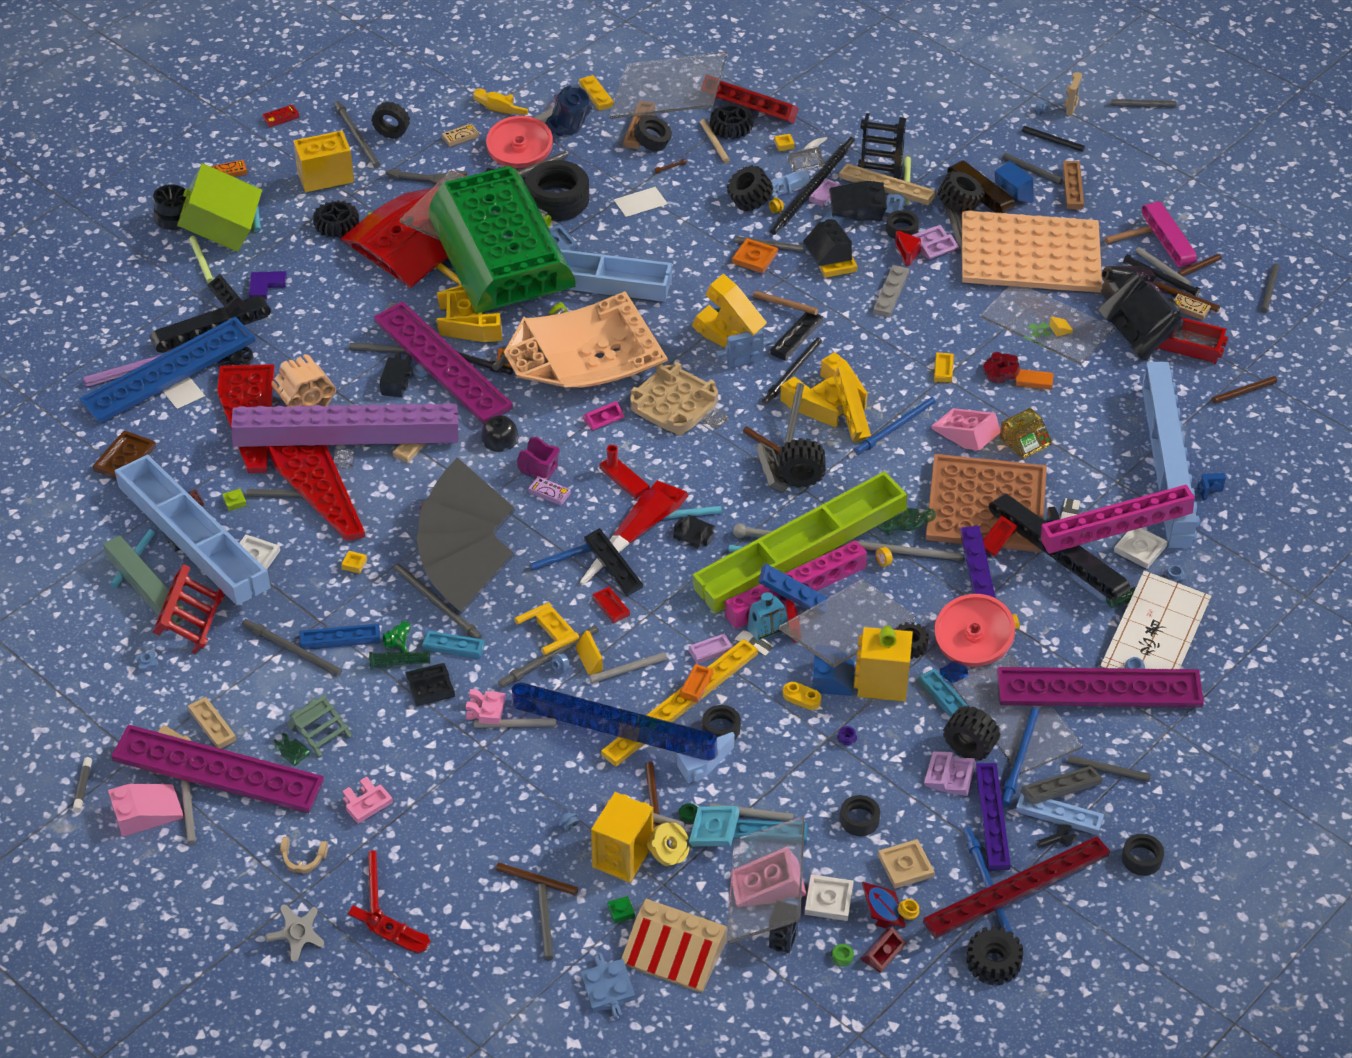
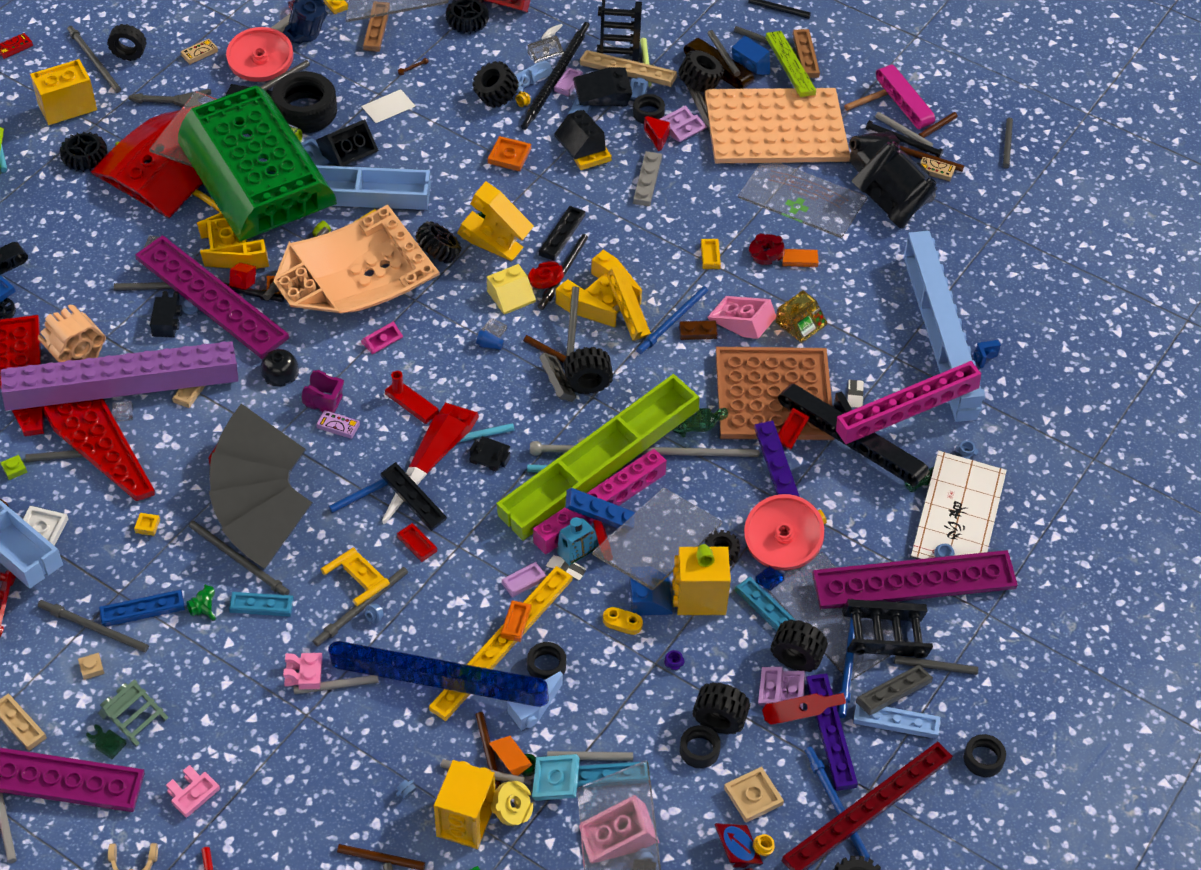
camera: 10 degrees left, 5 degrees up
(263, 280) = (15, 224): dark purple tile -> none
(285, 682) = (91, 666): none -> tan plate
(388, 659) = (197, 628): clear green pin -> none
(430, 684) = (242, 651): black slope -> none
(475, 346) = (242, 276): none -> red brick
(498, 102) = (232, 14): yellow animal -> none
(589, 654) = (402, 599): yellow slope -> none
(594, 232) = (348, 144): none -> black slope
(628, 667) = (443, 609): light grey bar -> none
(657, 125) = (396, 26): black tyre -> none
(671, 331) = (438, 242): none -> black gear
(674, 398) = (450, 313): tan plate -> none
(674, 802) = (511, 755): none -> orange slope
(708, 427) = (489, 340): none -> blue cone
(714, 140) = (453, 37): tan bar -> none
(736, 382) = (510, 289): none -> light yellow slope
(744, 348) = (514, 252): medium blue plate -> none
(774, 372) = (546, 275): none -> red tile
(780, 245) = (532, 140): flat silver bar -> none
(784, 142) = (521, 32): yellow plate -> none
(784, 302) = (546, 200): medium nougat bar -> none
(829, 897) = (682, 842): white plate -> none
(884, 556) = (682, 461): yellow tile -> none
(885, 780) = (721, 708): none -> black tyre
(919, 437) = (697, 330): none -> reddish brown plate
(954, 790) = (790, 709): none -> red piece
(986, 176) = (723, 52): none -> dark grey bar
(1055, 193) = (790, 64): none -> lime tile
(1058, 837) = (899, 746): black bar -> none
(1060, 326) = (816, 201): yellow slope -> none
(1067, 712) = (890, 611): none -> black fence
(1140, 547) = (930, 425): white plate -> none
(1198, 341) = (951, 204): red door -> none
(1245, 389) = (1001, 249): reddish brown bar -> none

